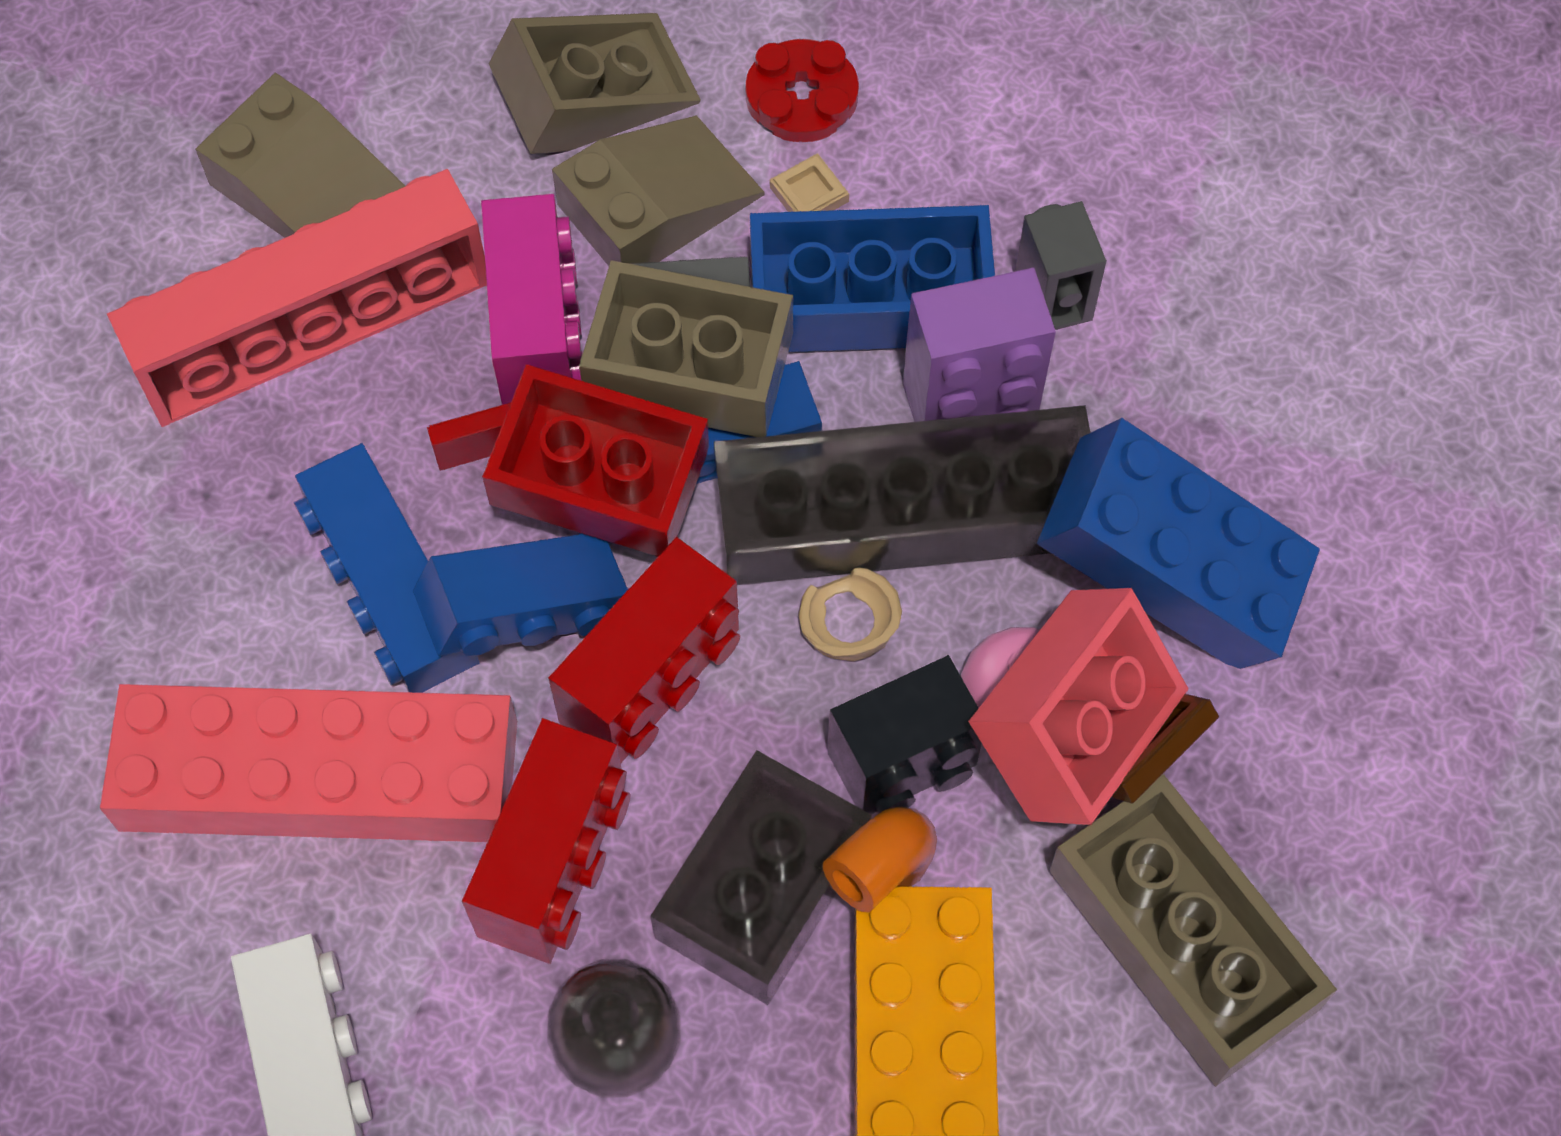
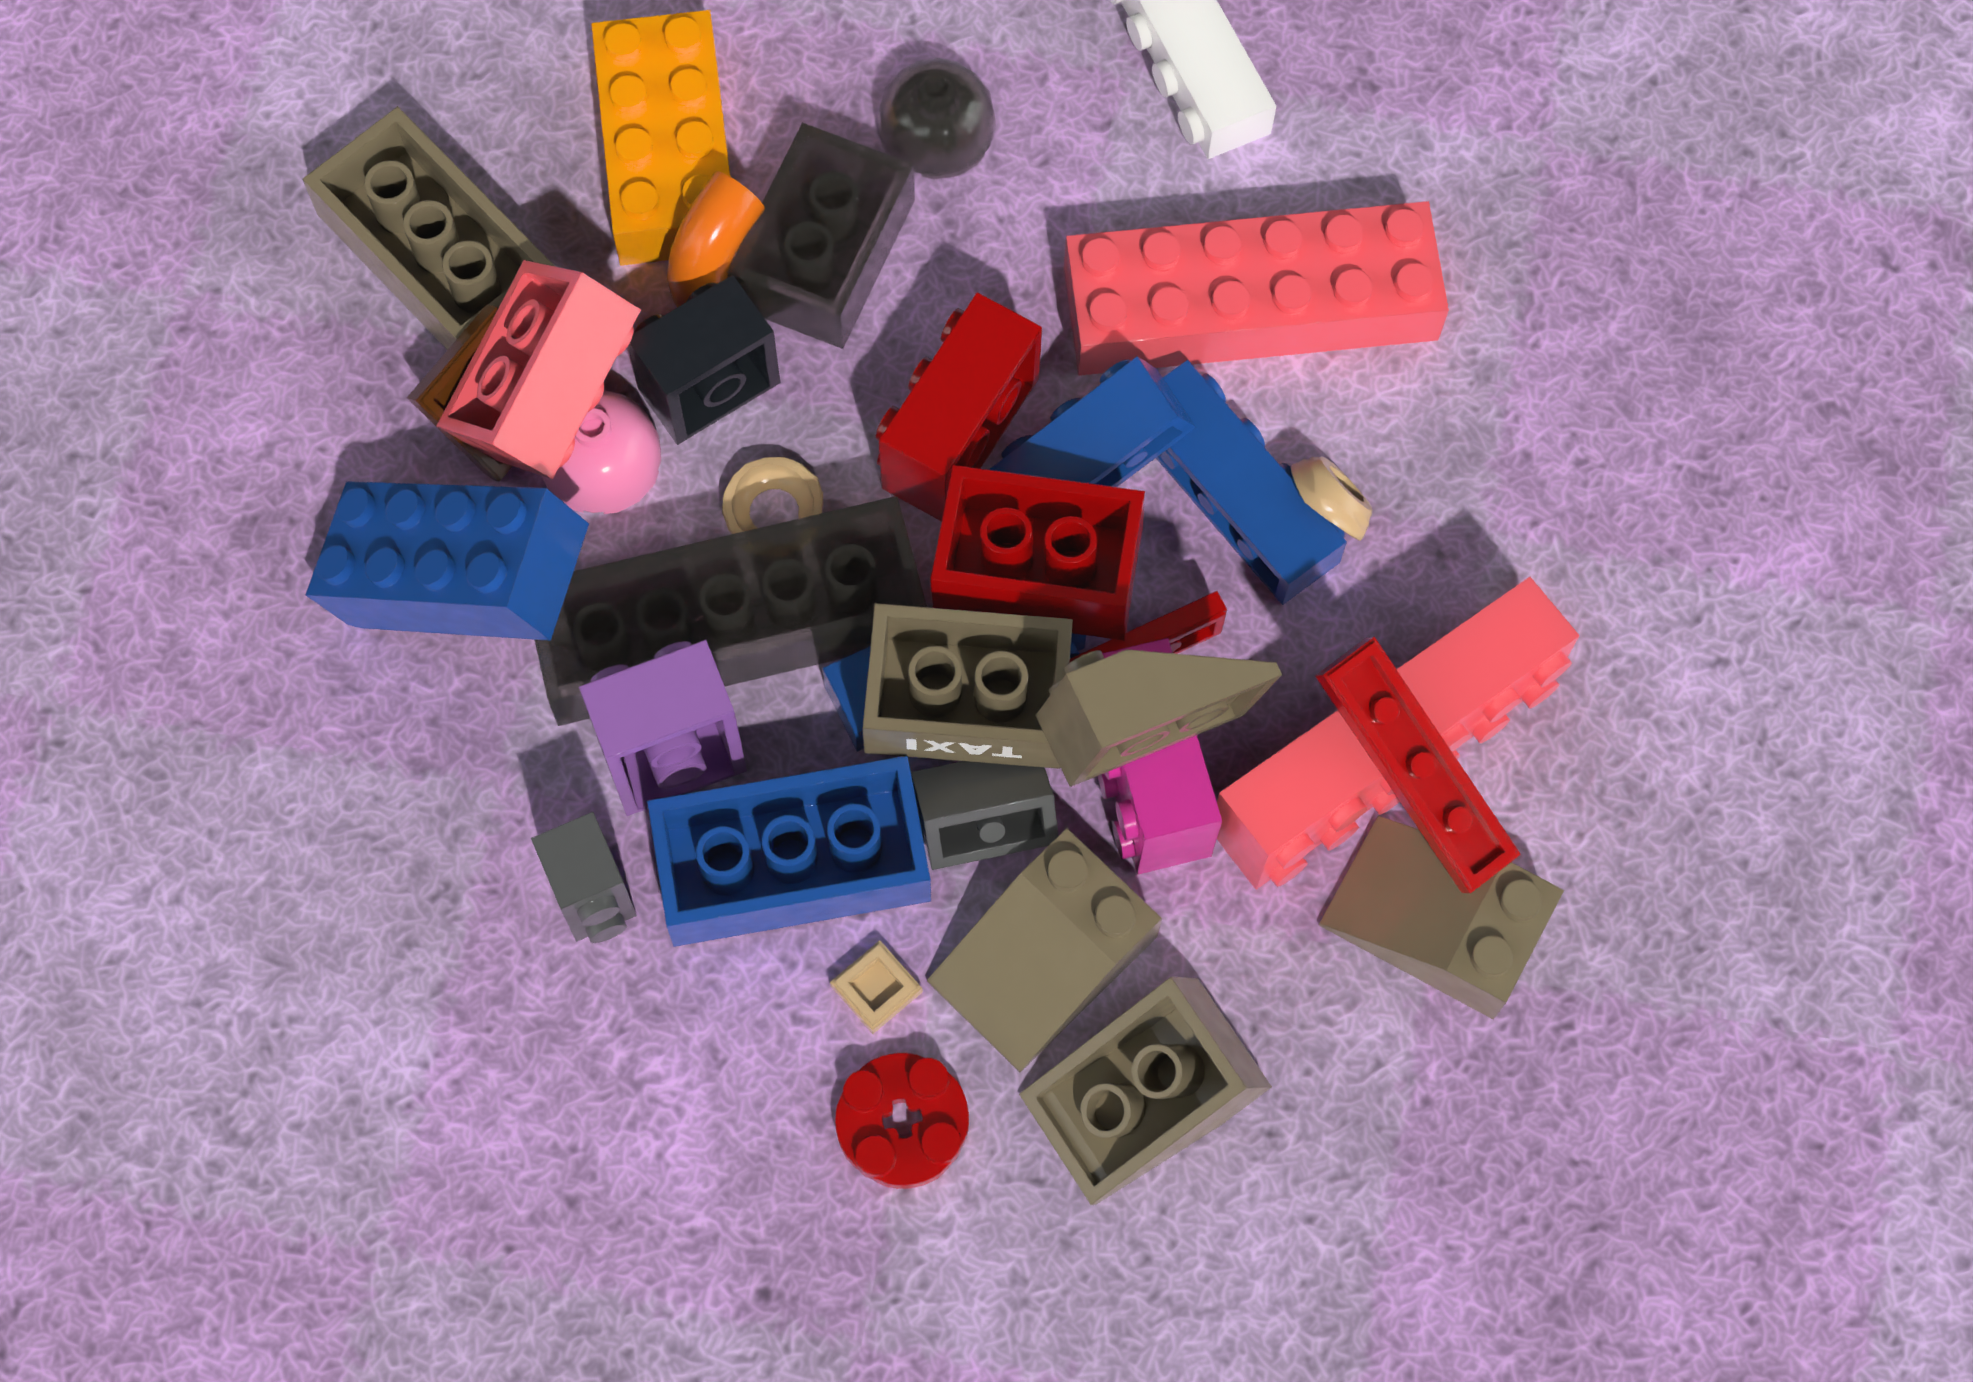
camera: 170 degrees right, 5 degrees up
(294, 220) = (1418, 765): none -> red tile
(307, 533) = (1332, 495): none -> tan piece
(521, 239) = (1142, 703): none -> dark tan slope
(547, 842) = (1019, 216): red brick -> none

